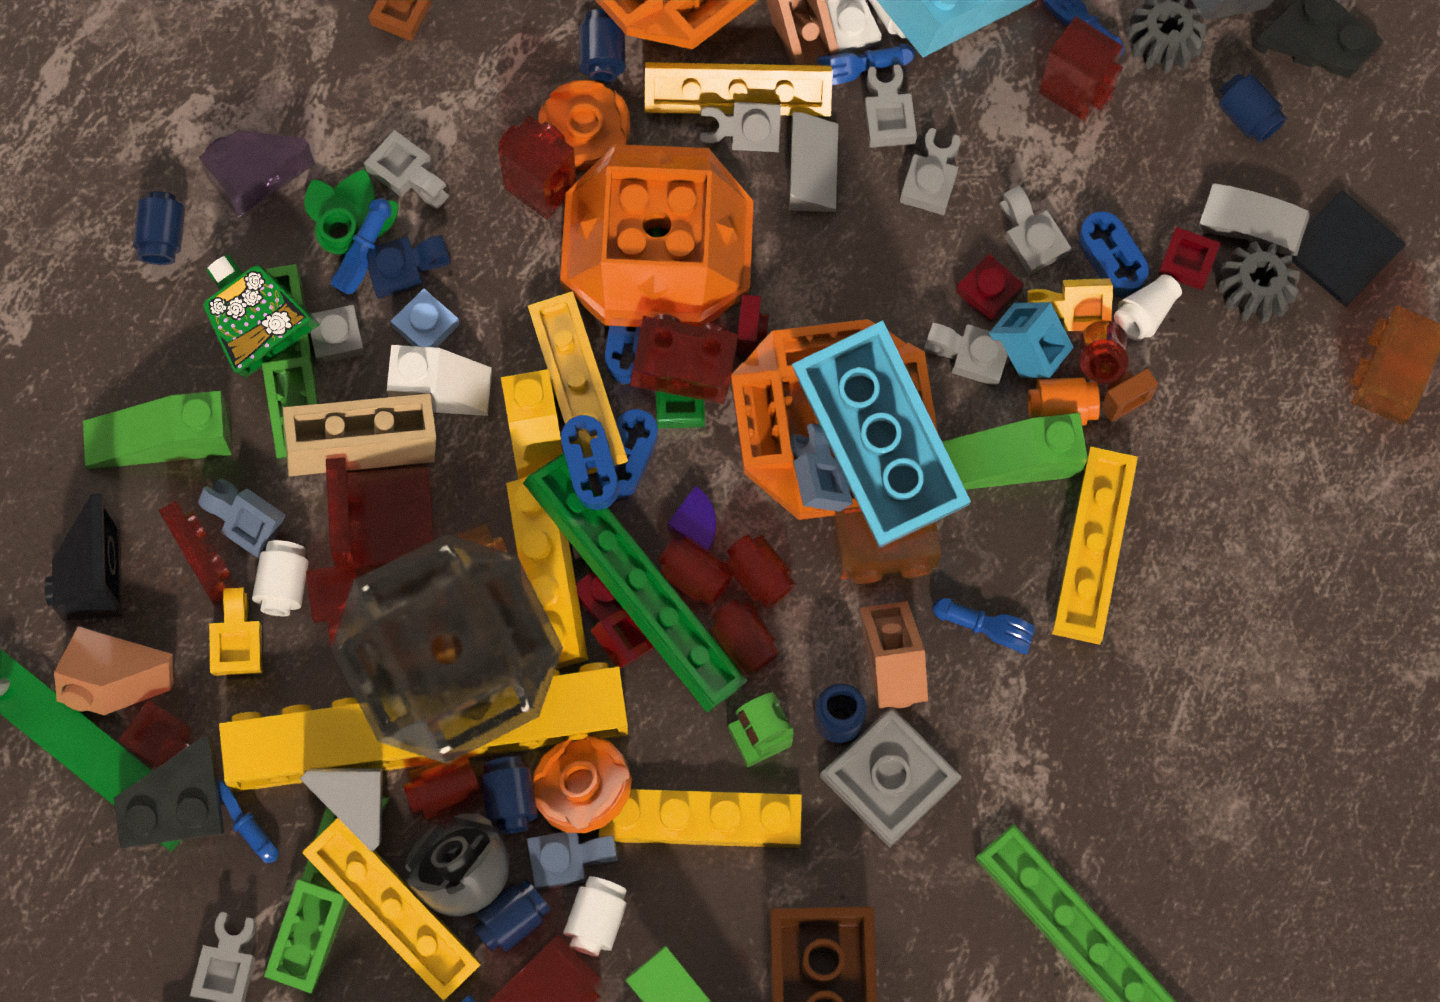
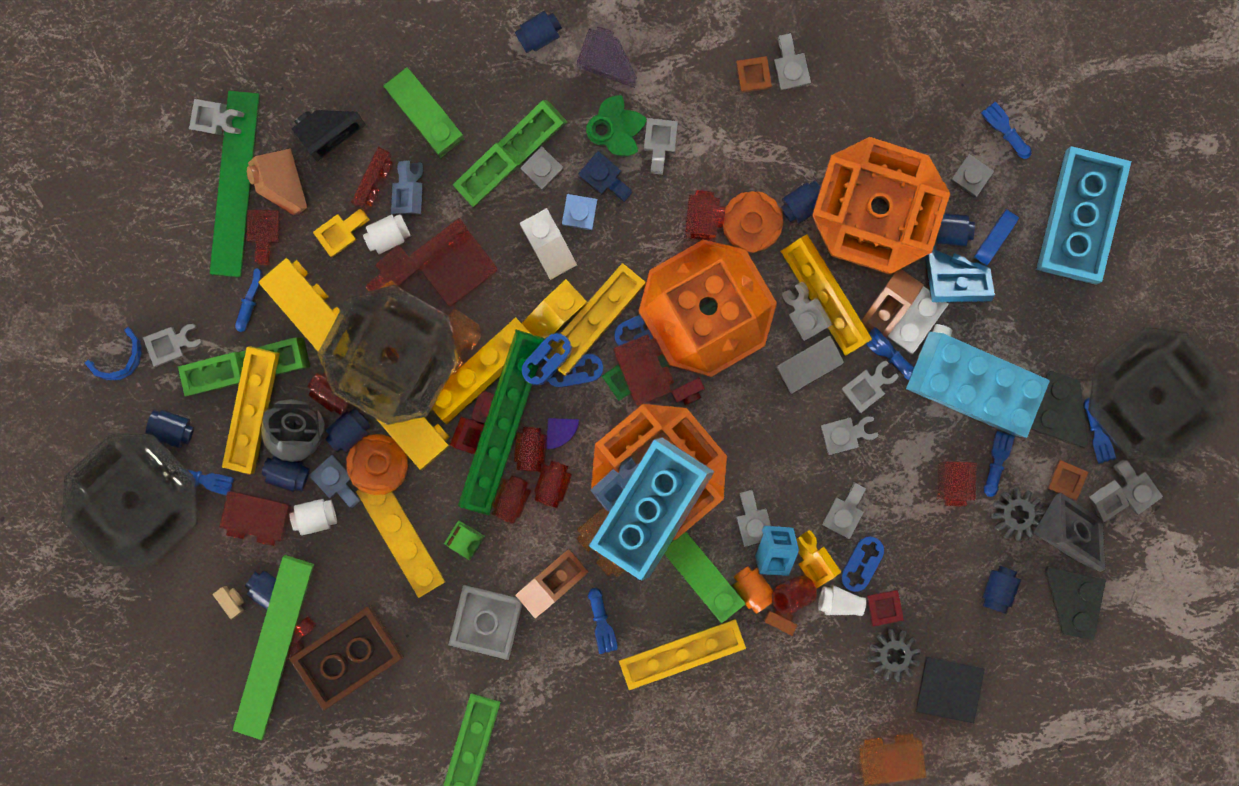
camera: 60 degrees right, 15 degrees up
(173, 800) = (232, 261): pearl dark grey wing -> none
(253, 315) = (517, 121): torso -> none
(352, 797) = (289, 352): light grey slope -> none
(355, 261) = (586, 152): blue piece -> none
(362, 431) = (487, 224): tan brick -> none
(843, 699) = (491, 583): dark blue brick -> none
(989, 288) = (798, 507): dark red plate -> none
(1254, 218) = (933, 630): light grey slope -> none

